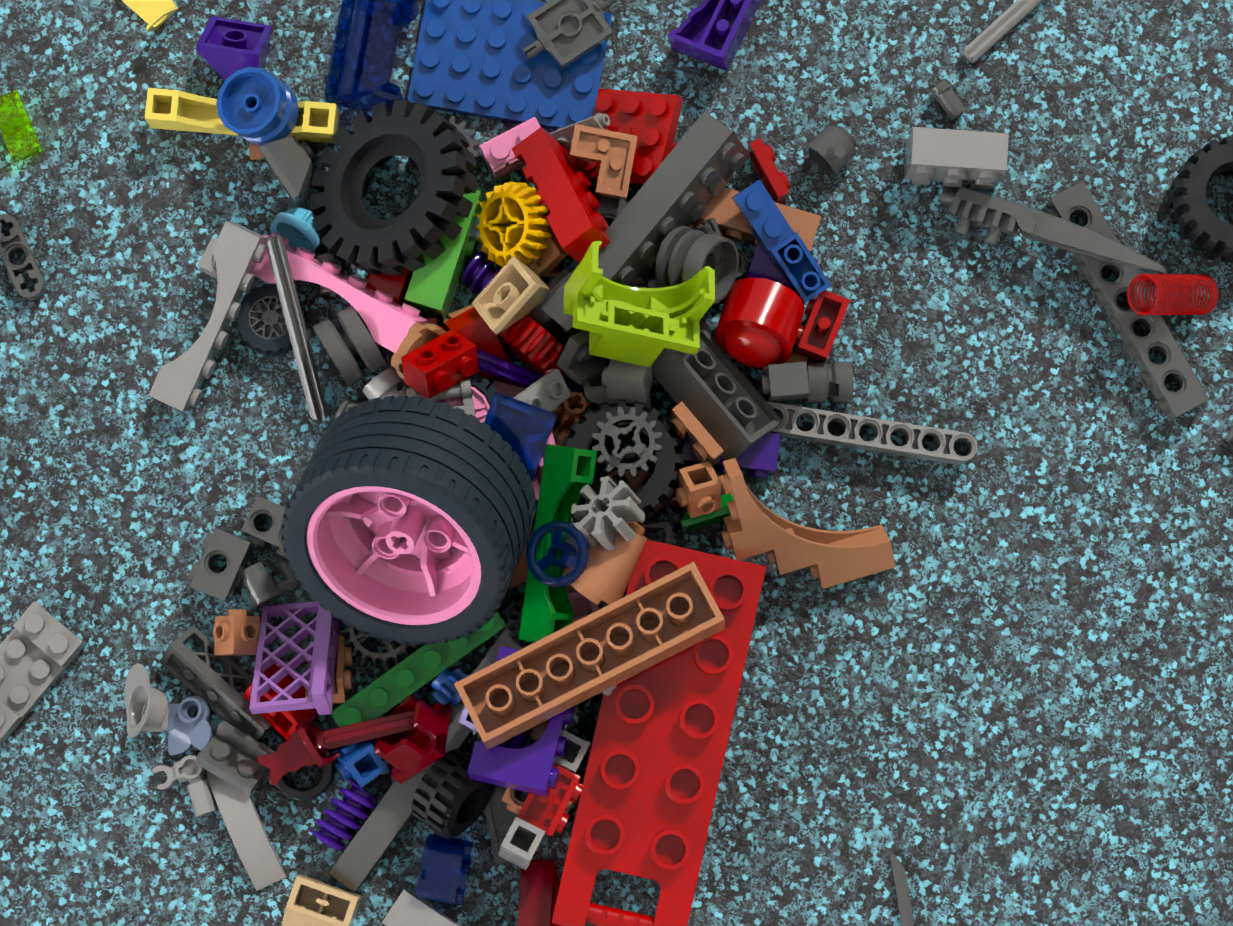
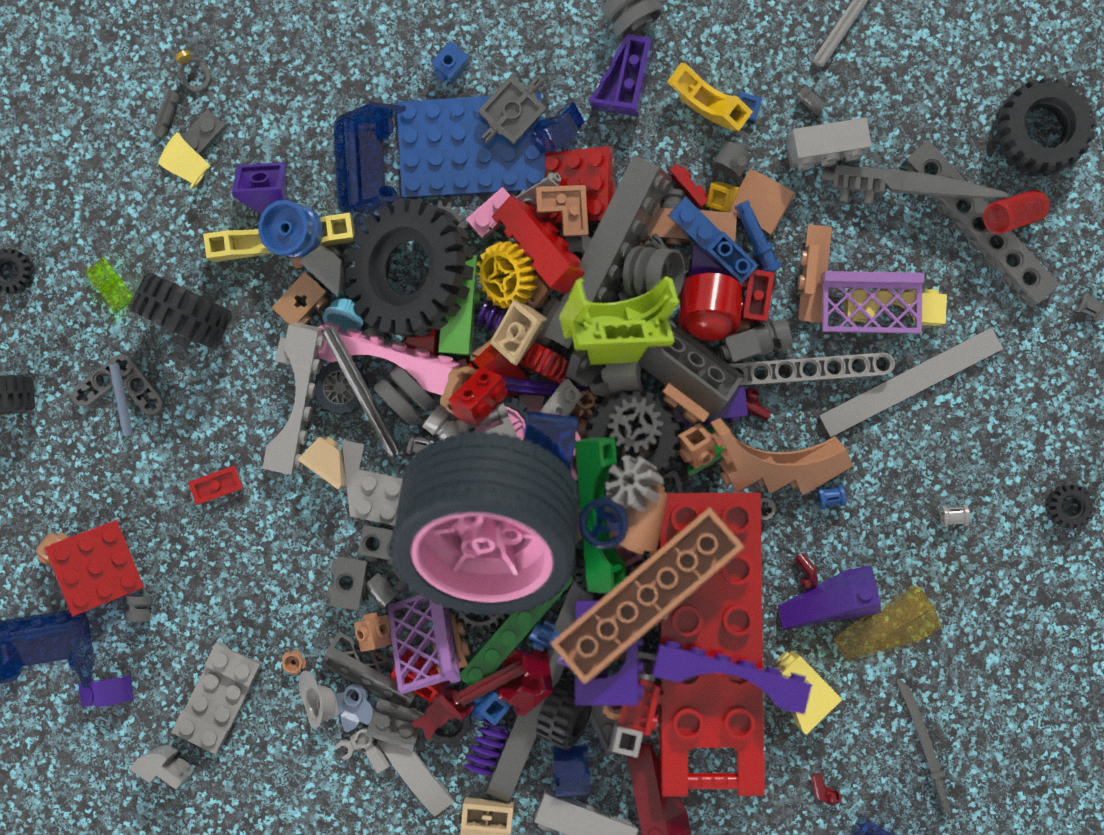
camera: 10 degrees left, 5 degrees up
(84, 404) = (216, 485): none -> red plate
(97, 173) = (180, 310): none -> black tyre
(119, 644) = (288, 666): none -> nougat plate
(231, 405) = (326, 461): none -> tan slope
(254, 185) = (304, 288): none -> medium nougat brick
(273, 458) = (369, 493): none -> light grey wing
(621, 63) = (557, 130): none -> clear blue brick
(735, 818) = (679, 664): none -> dark purple arch
(744, 178) = (672, 198): none -> dark grey wheel
(767, 836) = (821, 698): none -> light yellow slope
(780, 593) = (770, 503): none -> light grey bush
(787, 462) = (753, 405): none -> dark red arm
(808, 192) = (721, 196): none -> yellow slope
(810, 686) = (809, 569): none -> dark red arm
(816, 70) = (710, 103): none -> yellow arch
(835, 732) = (836, 599): none -> dark purple wedge
(844, 268) = (762, 247): none -> blue pin
(850, 605) = (831, 497): none -> blue bush
(856, 211) = (766, 198): none -> nougat slope
(866, 90) = (752, 102): none -> blue tile
(903, 316) = (814, 263): none -> nougat bracket
(904, 783) = (901, 622): none -> clear yellow wedge
(973, 339) = (876, 281): none -> medium lavender fence
(994, 480) = (910, 382): none -> light grey tile
(1011, 661) = (954, 515): none -> light grey bush
(1033, 390) = (932, 305): none -> light yellow arch
(1181, 679) = (1084, 511): none -> black tyre

